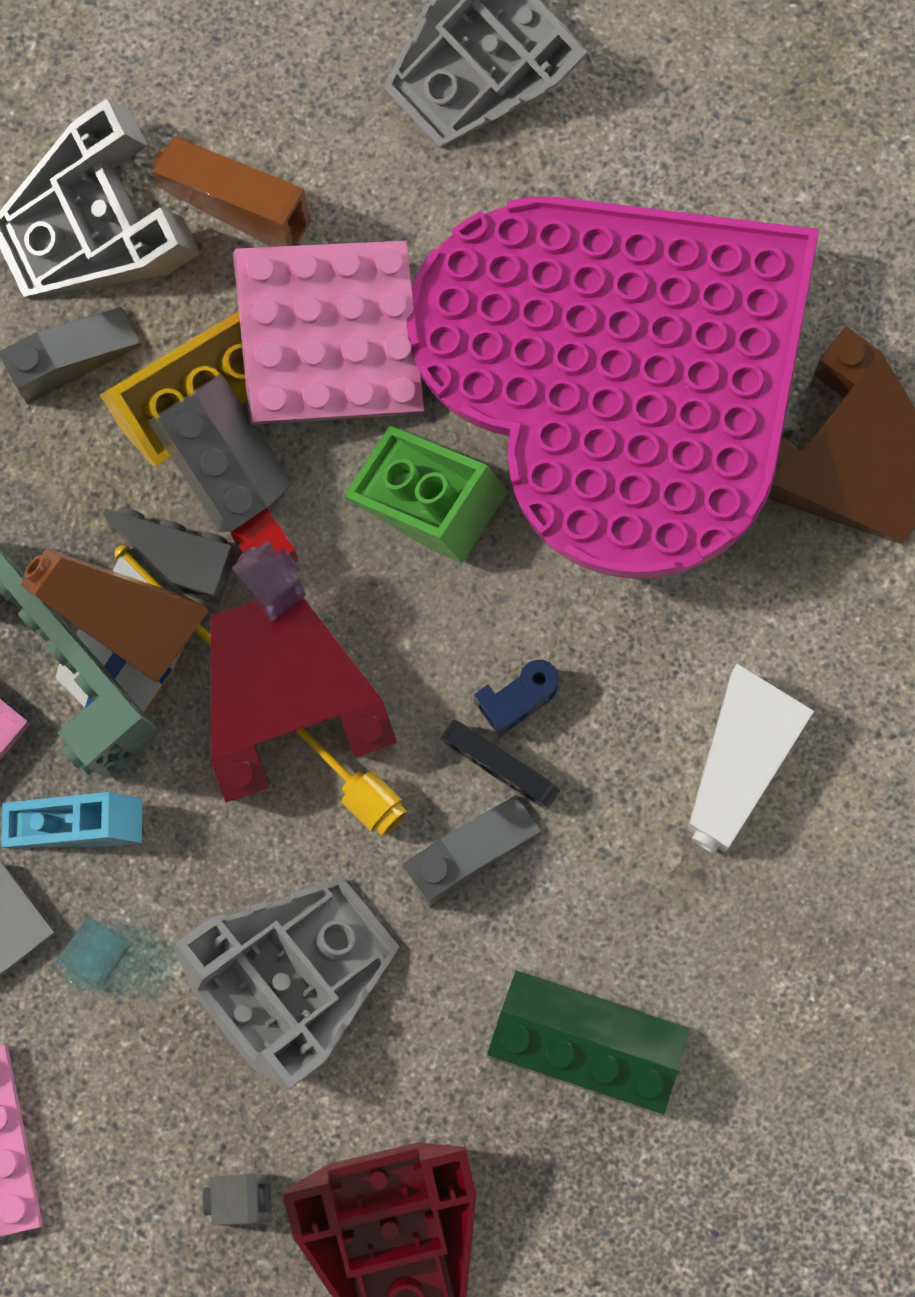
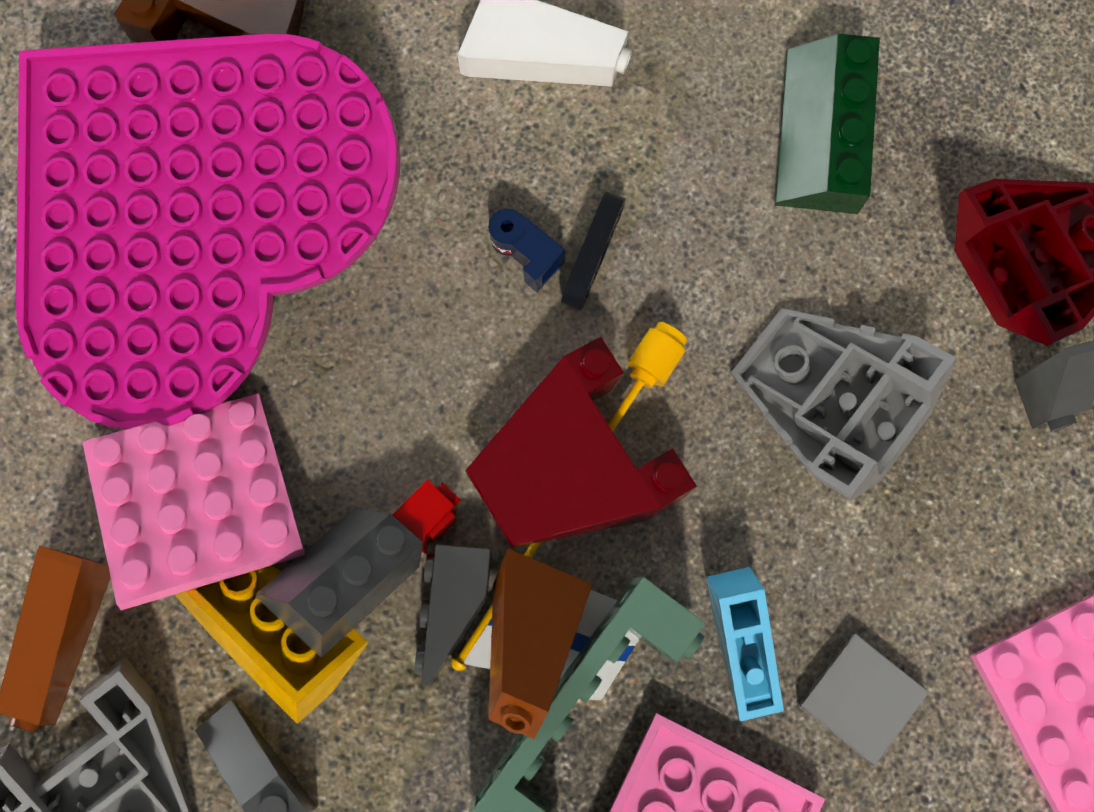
camera: 110 degrees left, 0 degrees up
(92, 955) = (869, 588): clear light blue brick -> none
(269, 579) = (466, 490): clear purple brick -> none
(428, 492) = (341, 372): bright green slope -> none
(470, 850) = (682, 261): dark grey slope -> none

